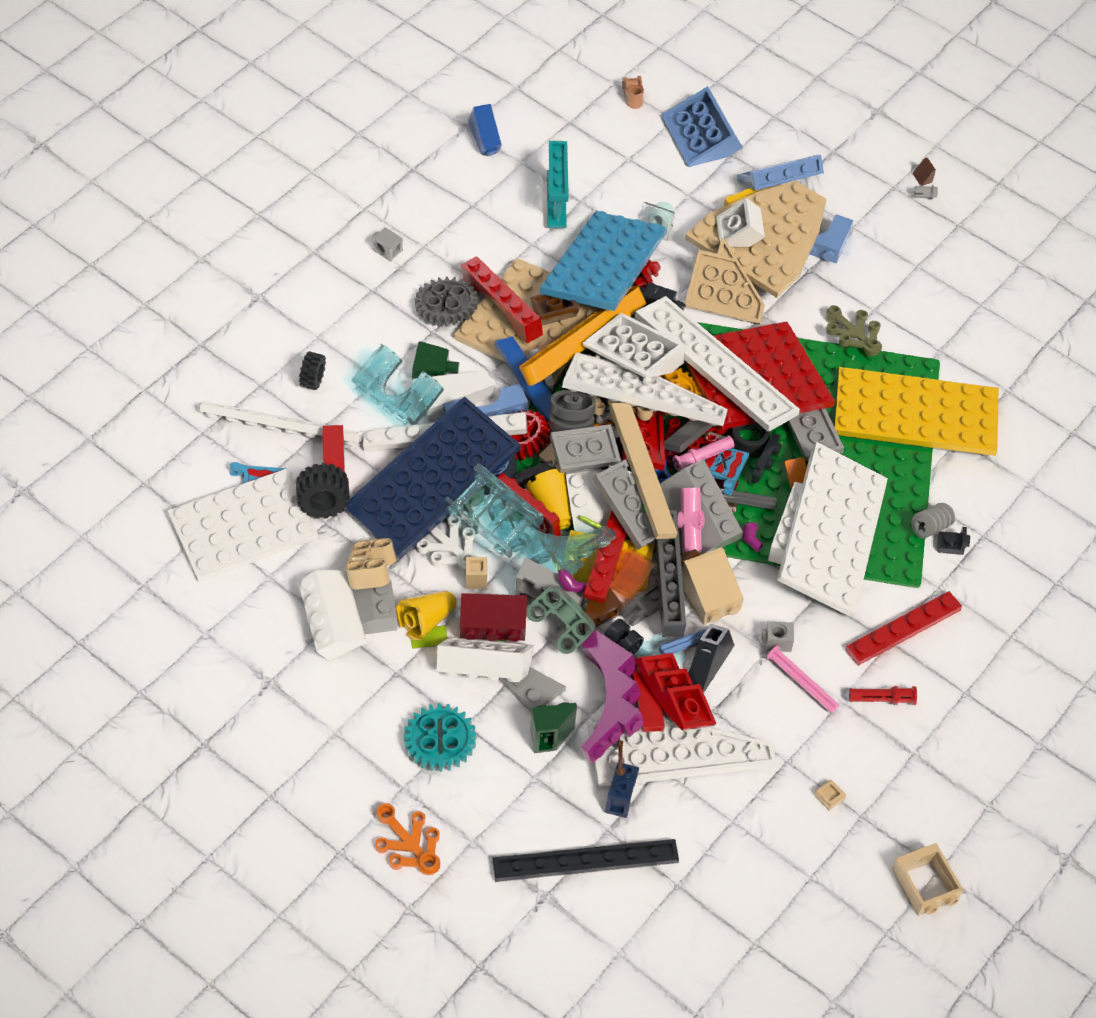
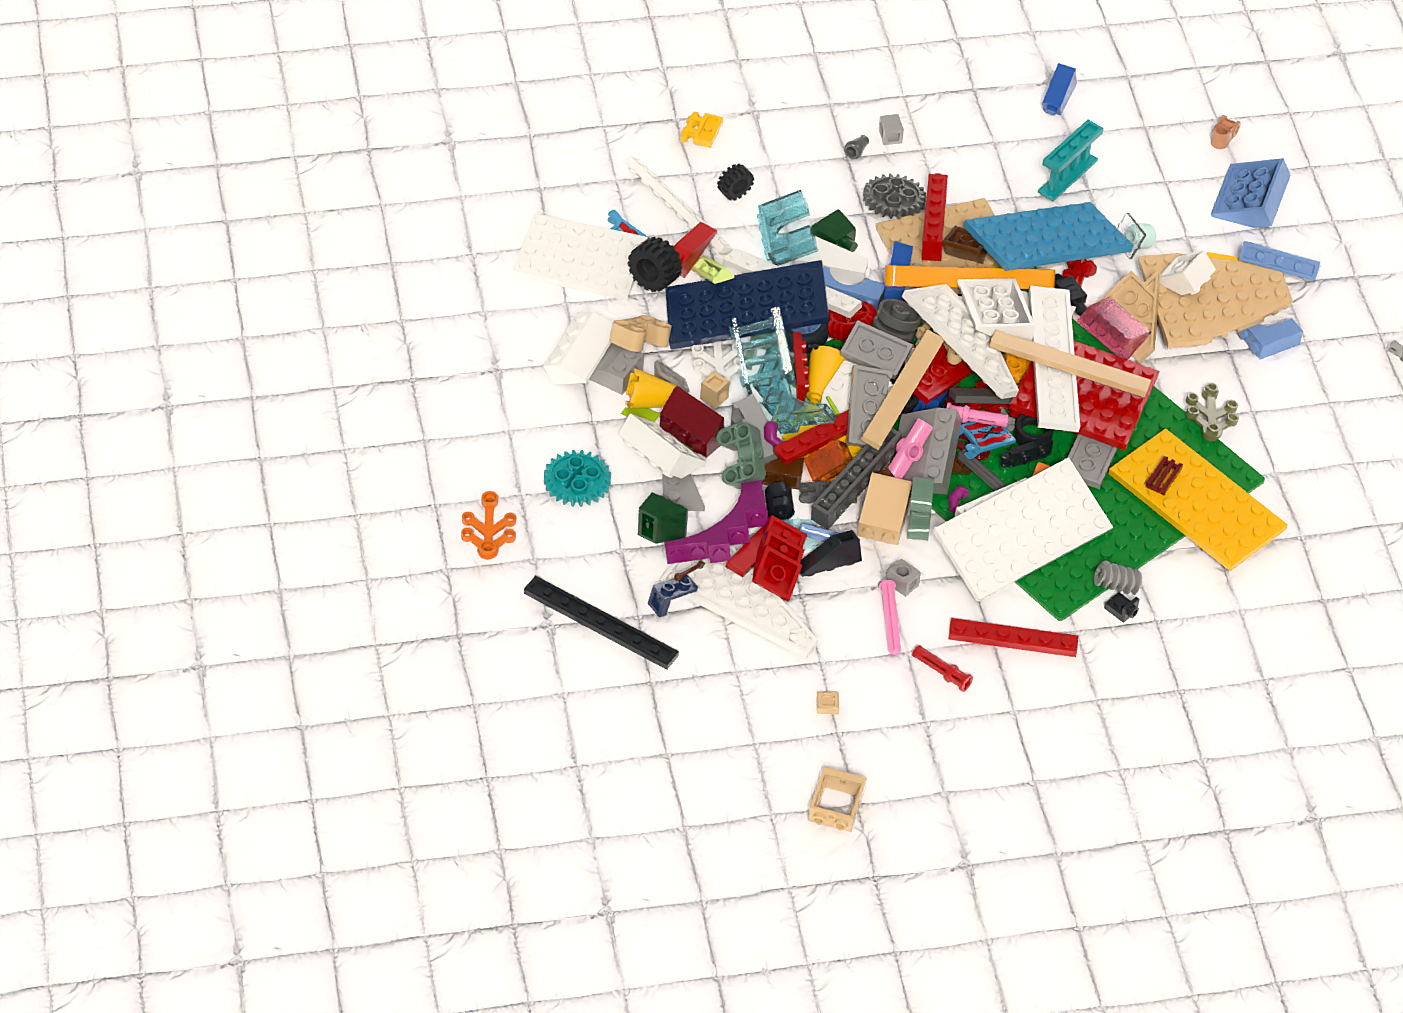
camera: 40 degrees right, 5 degrees down
(239, 337) = (707, 129): none -> yellow plate
(371, 464) = (711, 270): none -> yellowish green slope
(374, 276) = (855, 147): none -> dark grey cone
(427, 586) = (665, 373): none -> light grey slope
(723, 306) = (1114, 327): none -> clear pink slope
(736, 359) = (1070, 363): none -> tan tile
(744, 560) = (920, 508): none -> sand green beam
(881, 395) = (1170, 465): none -> dark red tile

